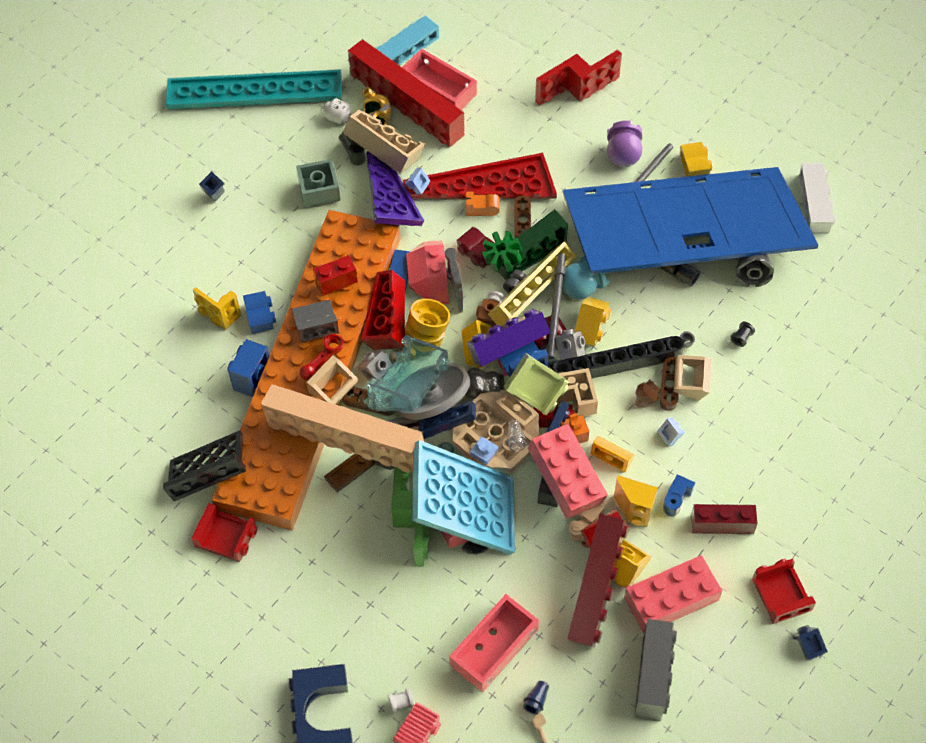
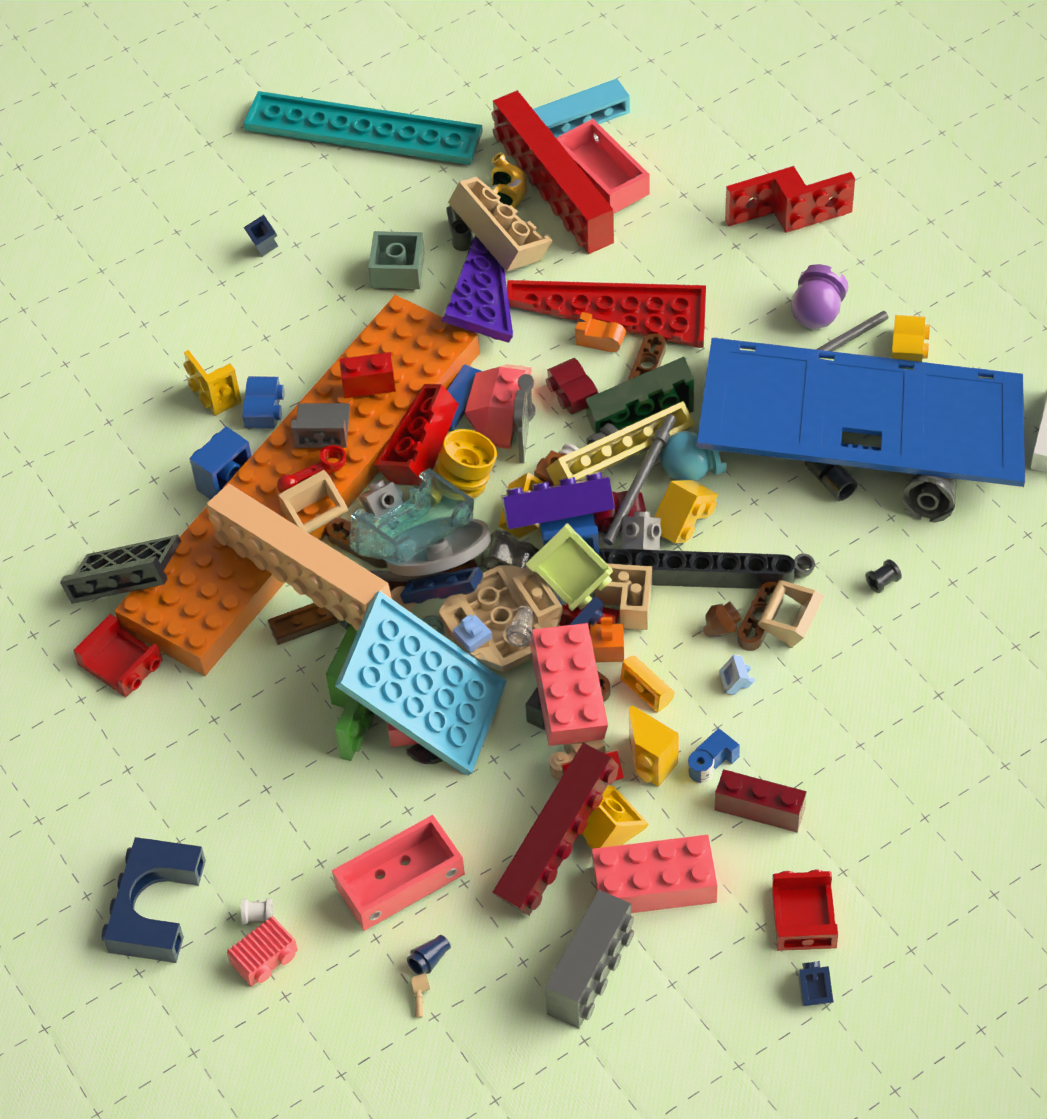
camera: 20 degrees right, 5 degrees down
(337, 111) = (454, 172): white head -> none
(418, 181) = (524, 284): light blue tile -> none
(502, 251) = (595, 395): green gear -> none

